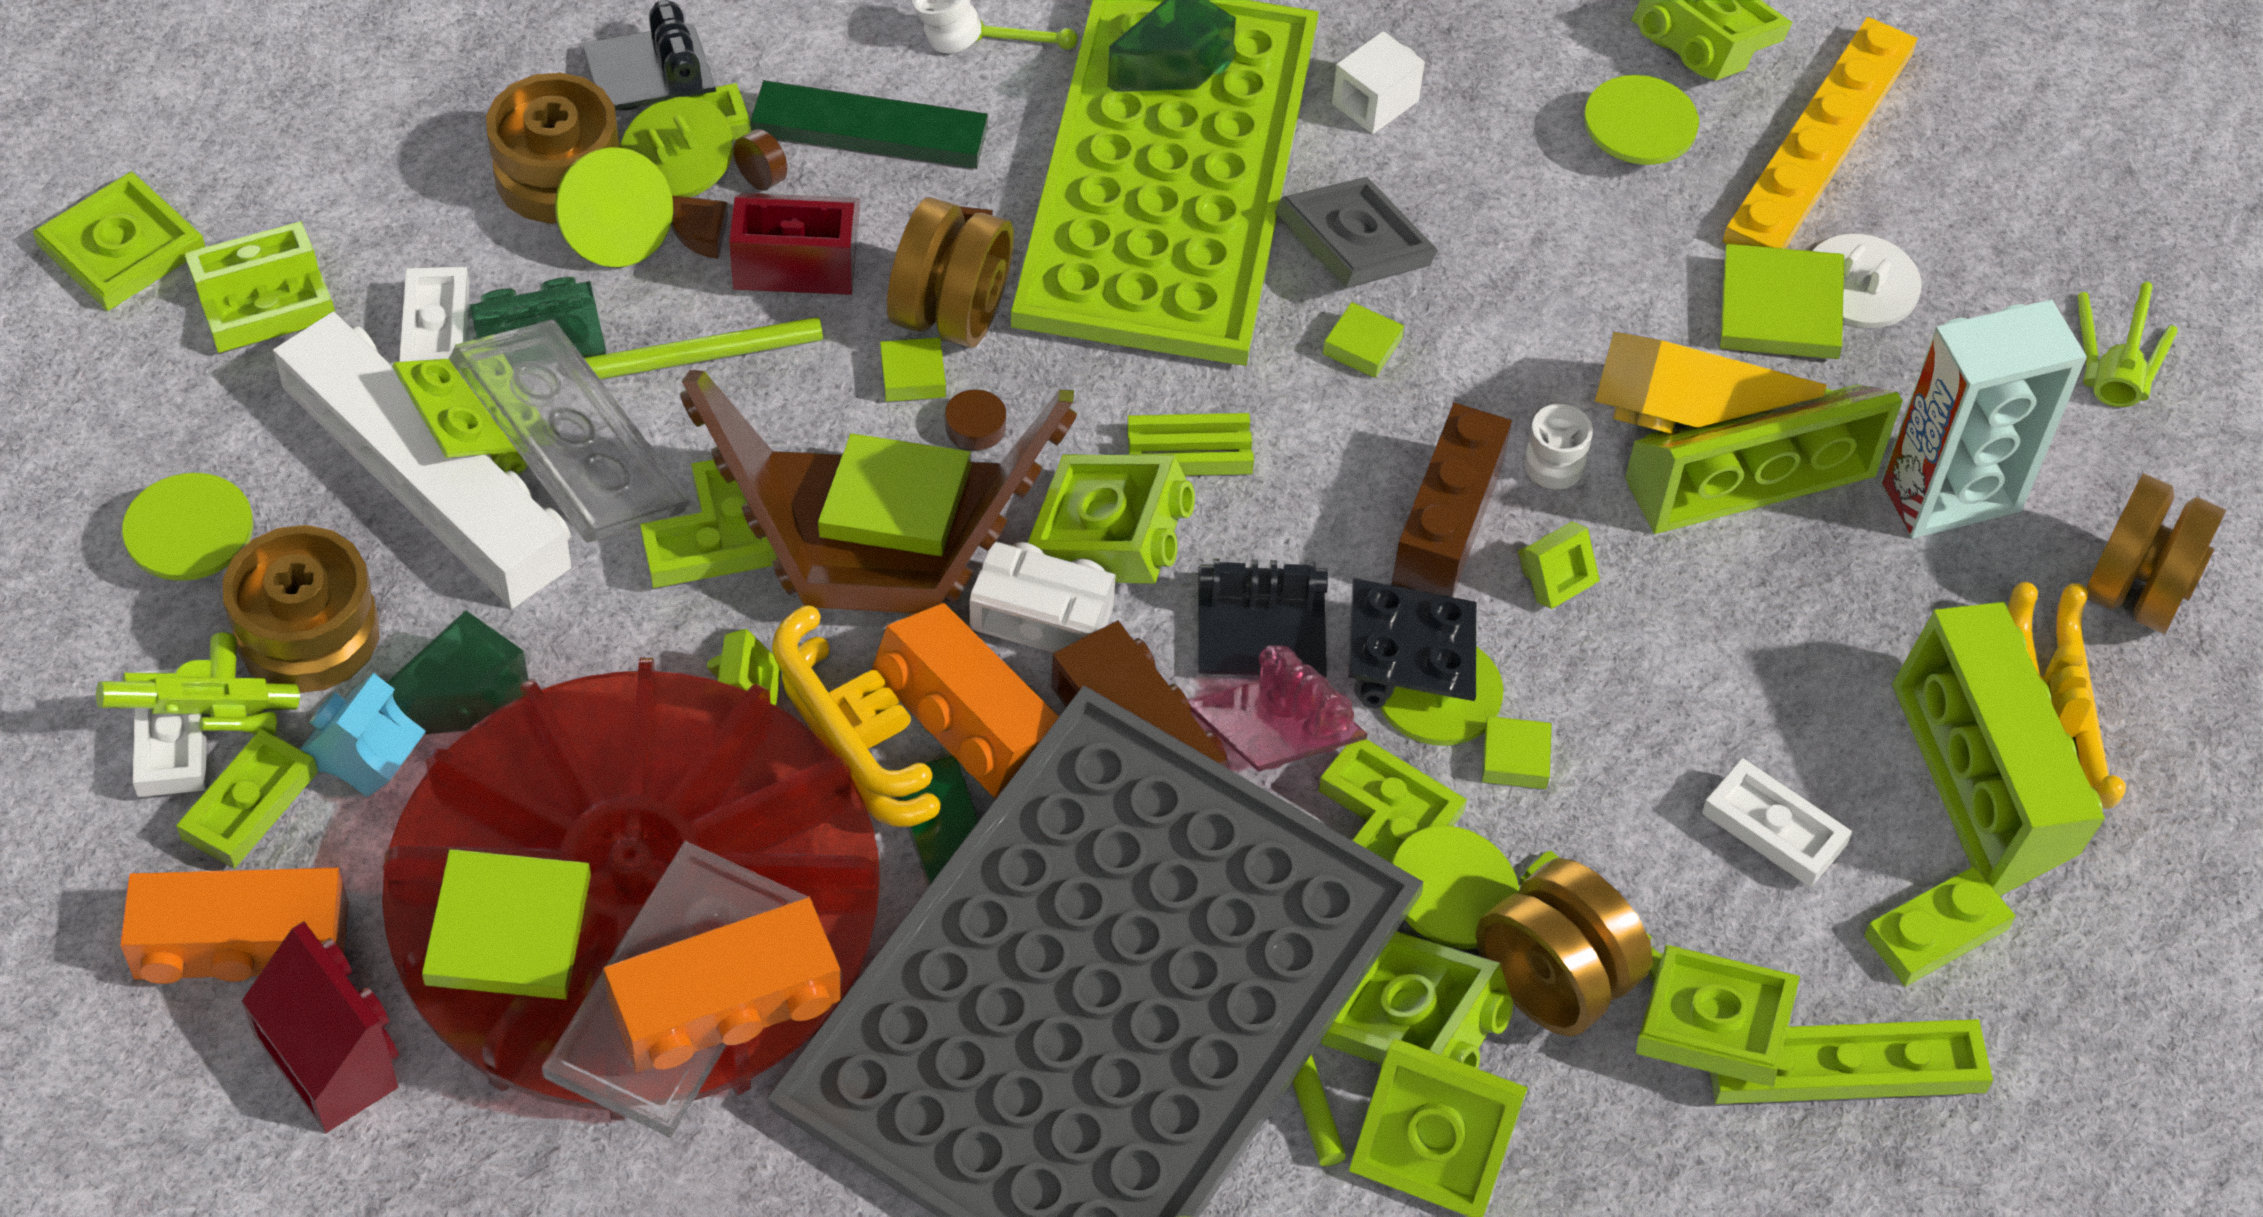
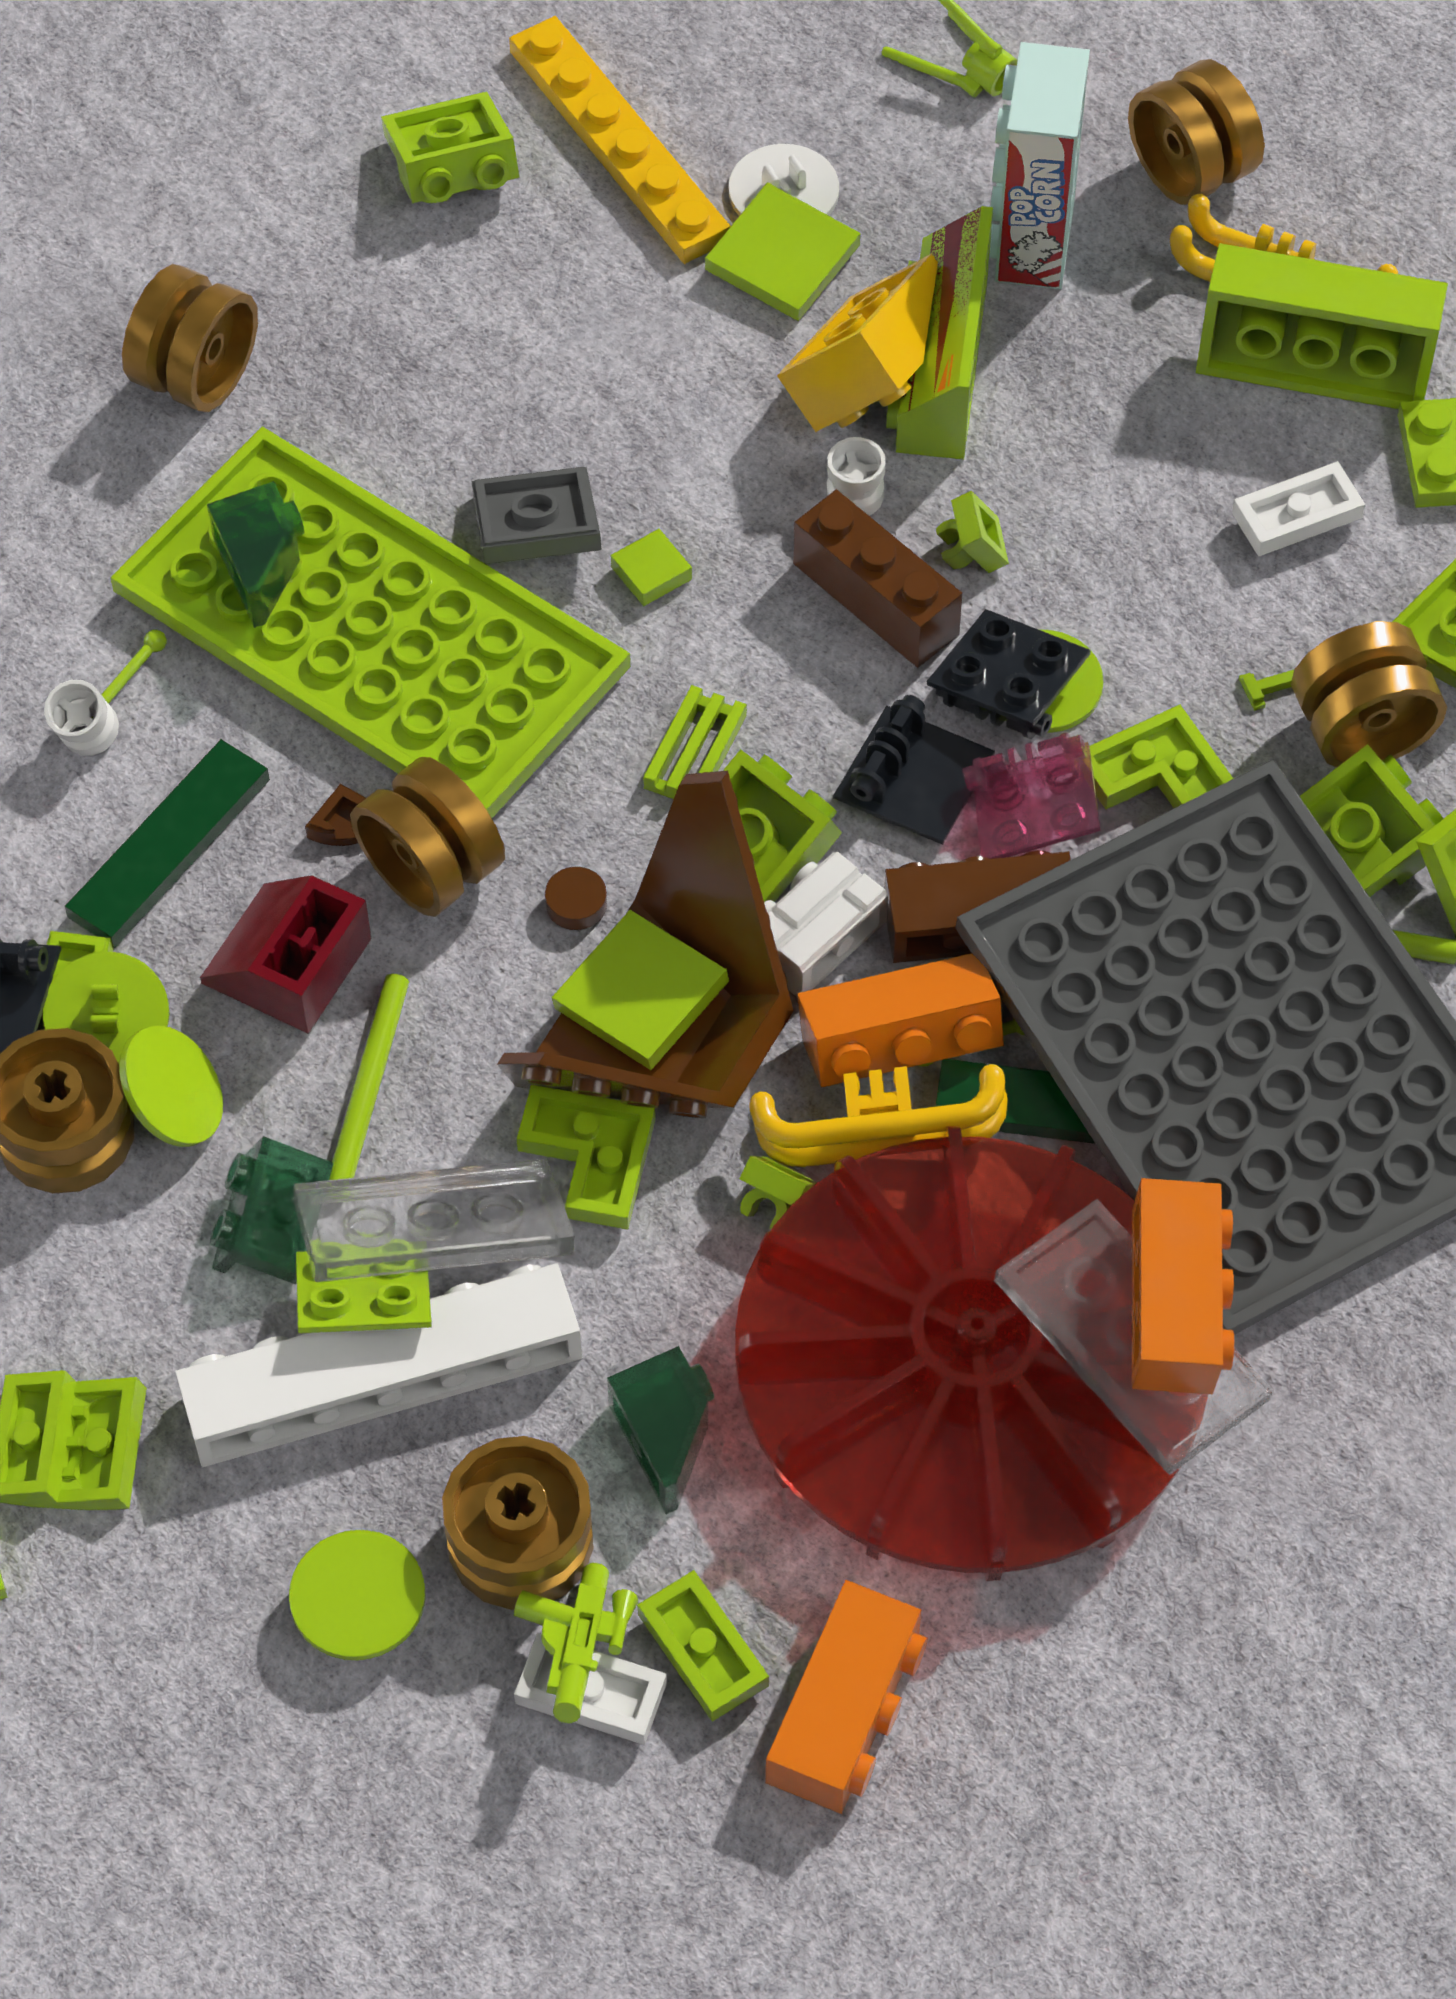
camera: 60 degrees left, 5 degrees up
(321, 1028) = (1008, 1651): dark red slope -> none
(362, 736) = (694, 1521): medium azure brick -> none
(434, 312) = (210, 1297): white plate -> none
(507, 924) = (1010, 1443): lime tile -> none
(700, 224) = (215, 1028): reddish brown tile -> none
(760, 159) = (169, 945): reddish brown tile -> none
(913, 369) = (489, 924): lime tile -> none
(1378, 82) = (372, 421): white brick -> none
(1460, 880) = (1254, 734): lime piece -> none
(1517, 752) = (1138, 653): lime tile -> none
(1641, 119) = (535, 250): lime piece -> none

